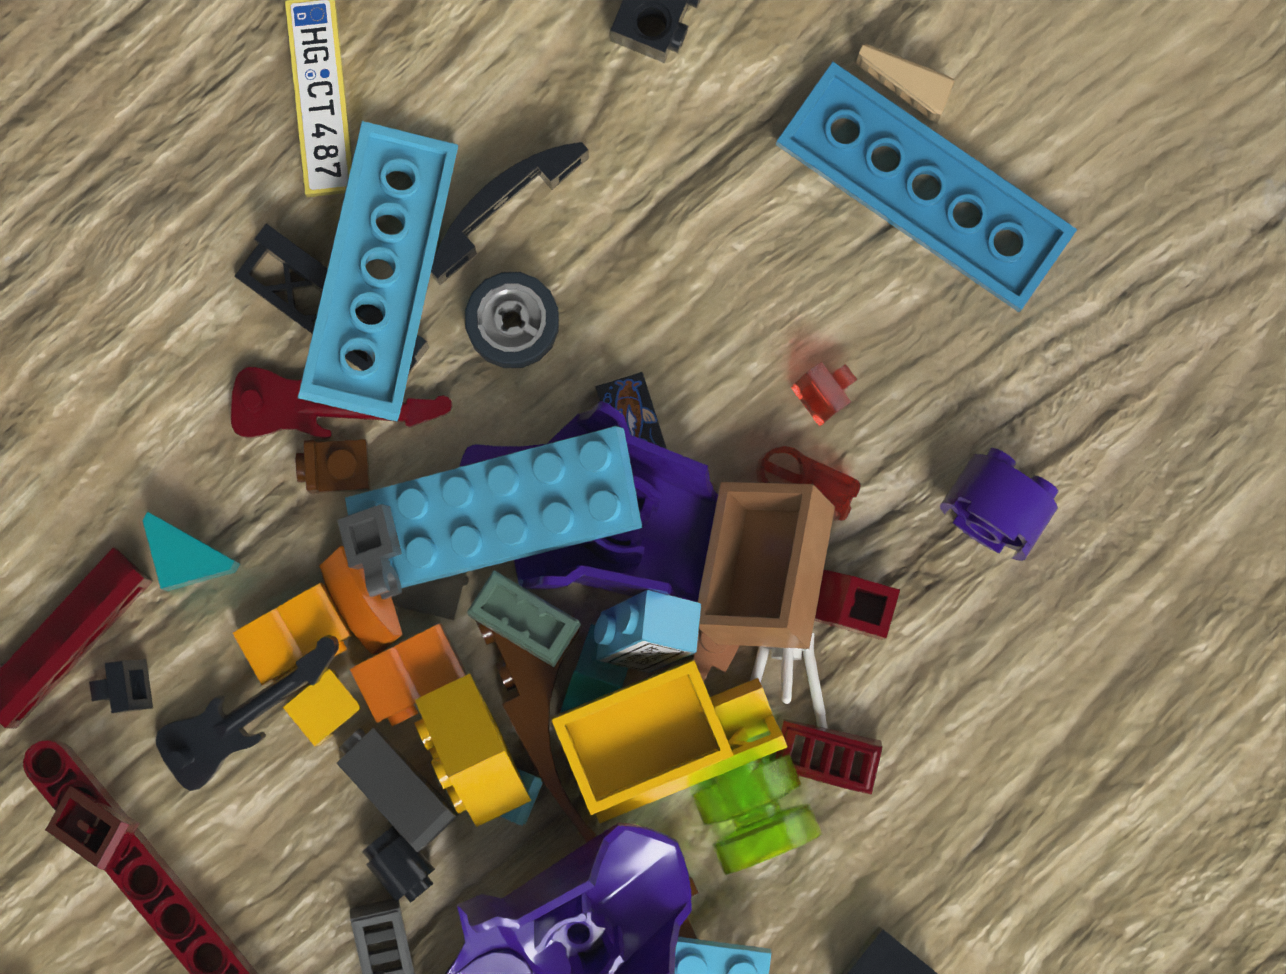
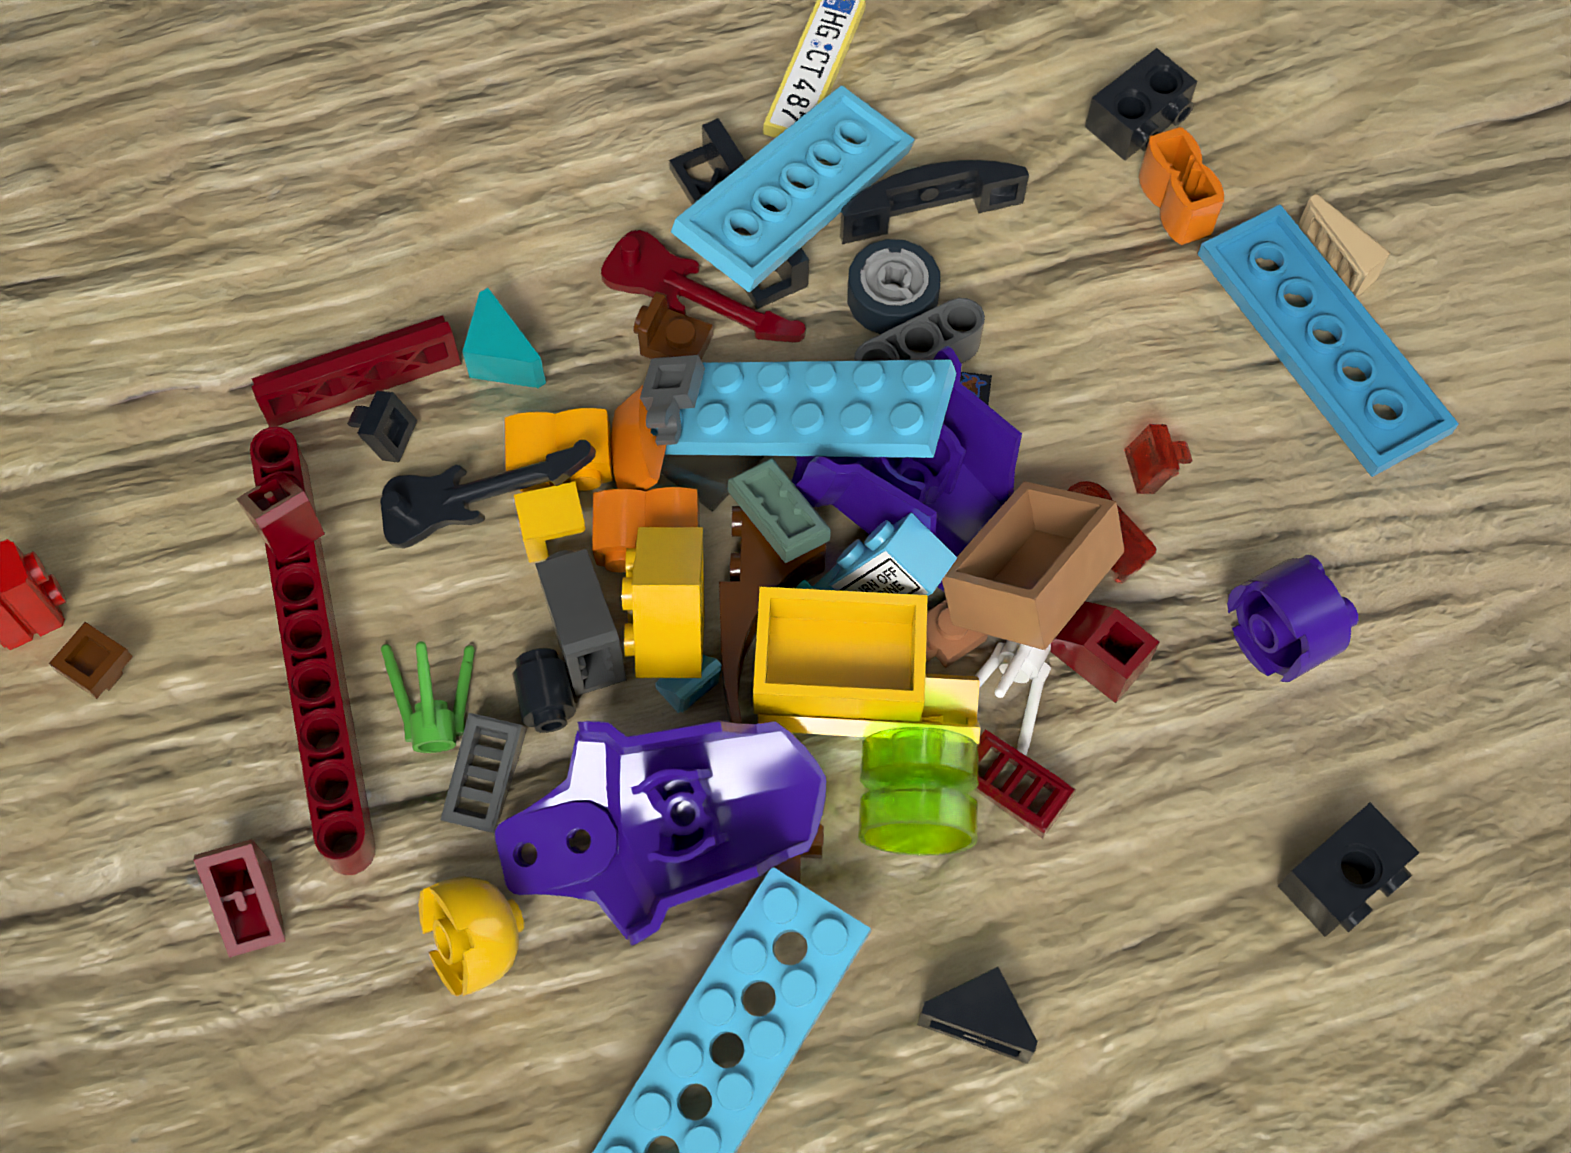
camera: 30 degrees right, 20 degrees down
(320, 938) = (432, 725): none -> bright green plant
(568, 355) = (930, 333): none -> dark grey beam
(721, 80) = (1181, 185): none -> orange brick
(1105, 724) = (1368, 845): none -> black brick

